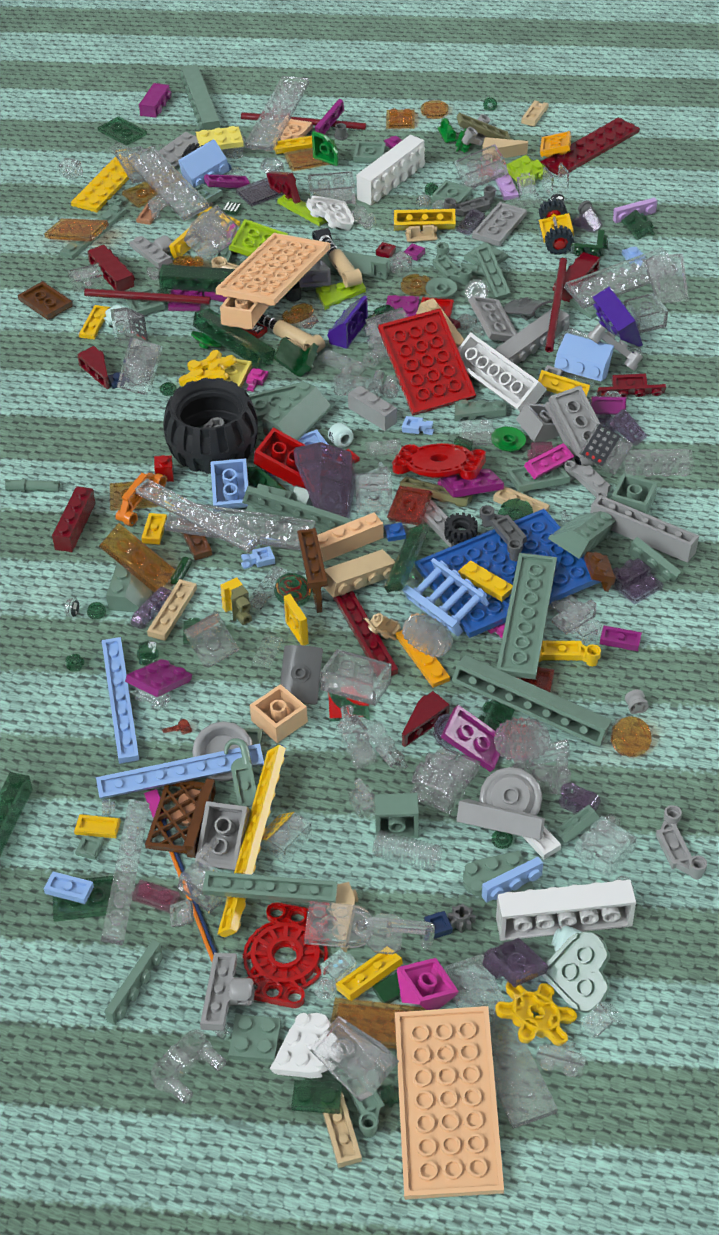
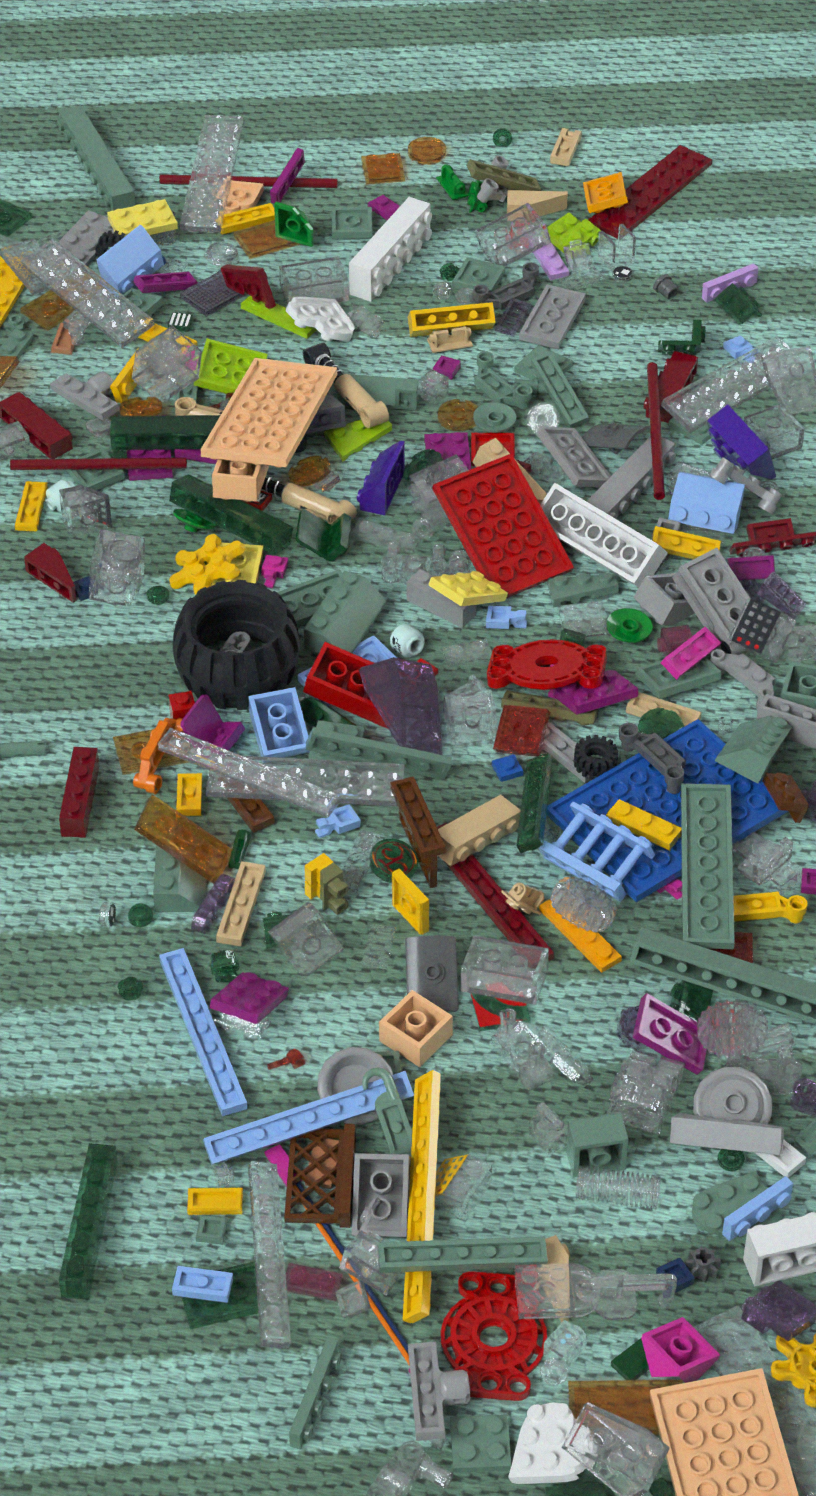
camera: 10 degrees left, 0 degrees up
(155, 100) = (33, 165): magenta brick -> none
(178, 480) = (206, 724): none -> magenta bracket
(301, 495) = (377, 731): plate -> none
(340, 132) = (305, 195): dark grey piece -> none
(350, 536) = (456, 778): light nougat brick -> none
(368, 975) = (603, 1348): yellow plate -> none
(385, 250) = (407, 368): dark red plate -> none
(391, 401) = (468, 588): none -> light yellow plate
(424, 717) = (602, 1011): dark red slope -> none
(556, 226) = (630, 316): plate -> none
(587, 221) = (668, 303): slope -> none

